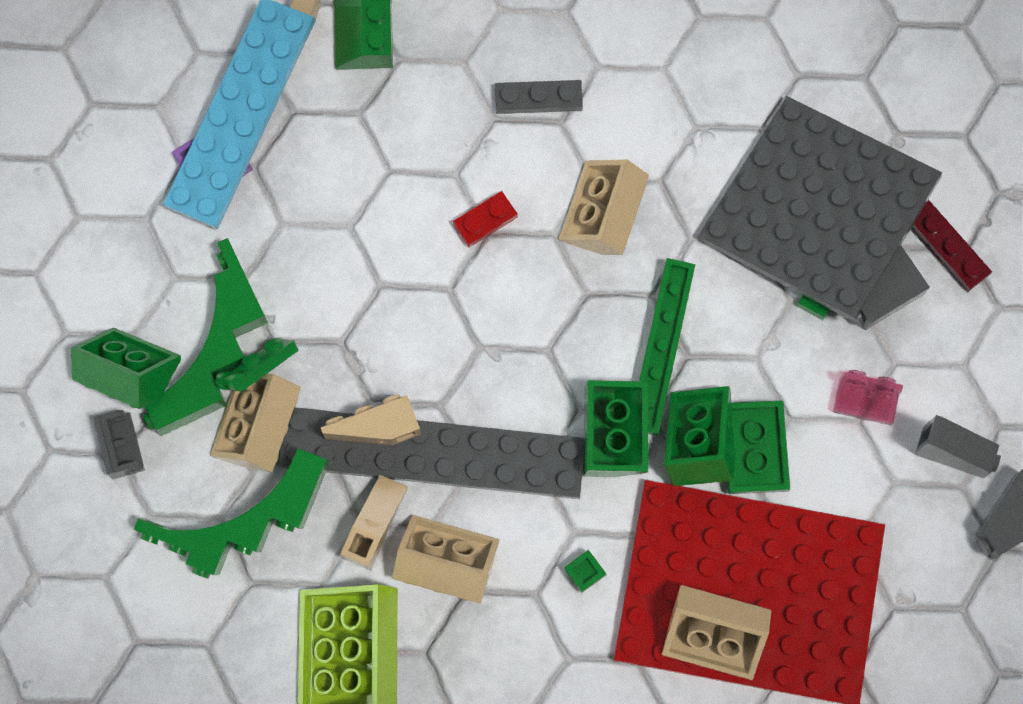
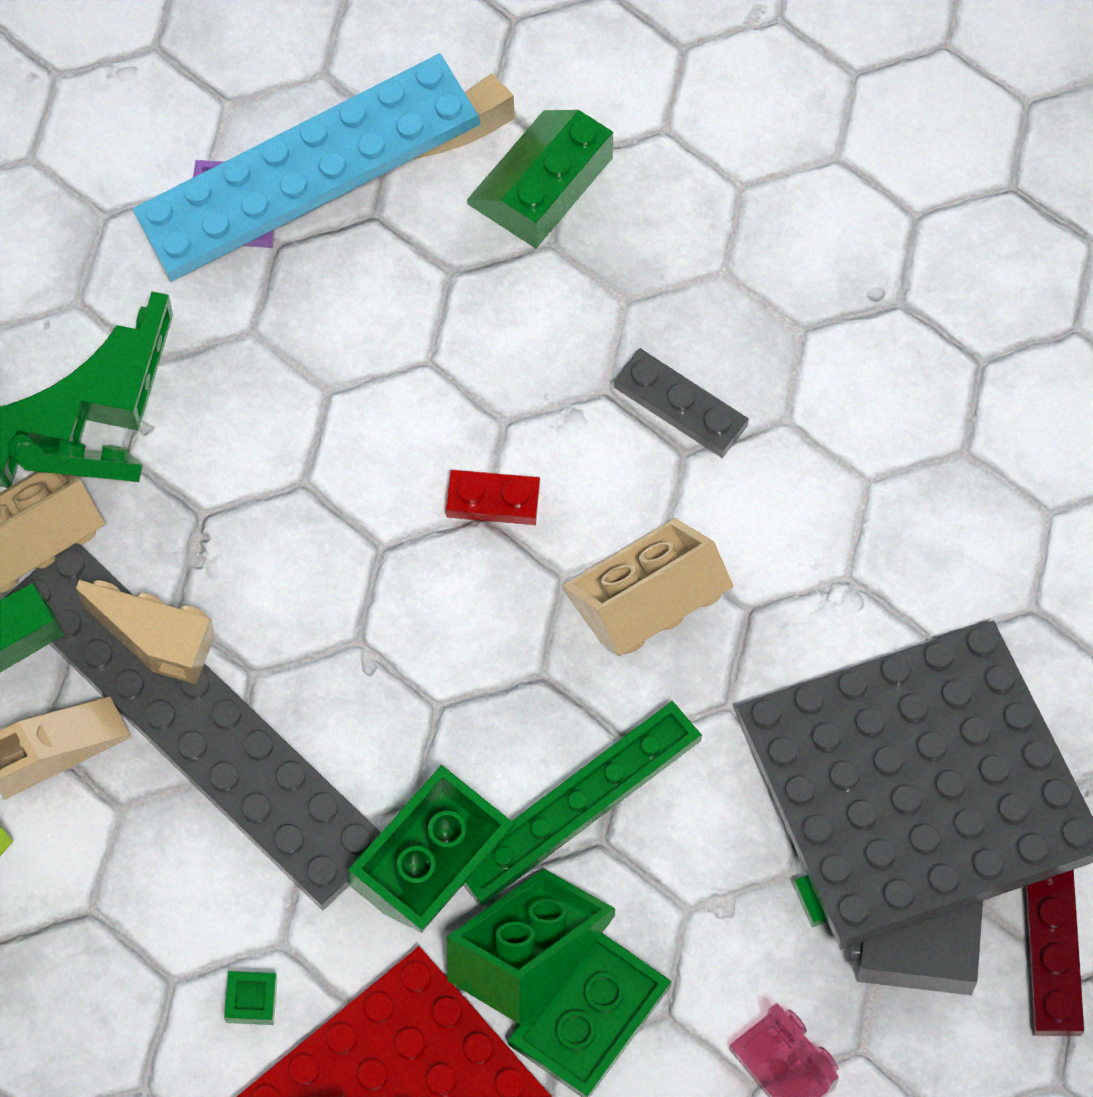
camera: 40 degrees right, 10 degrees down
(445, 559) = (98, 851): tan slope -> none

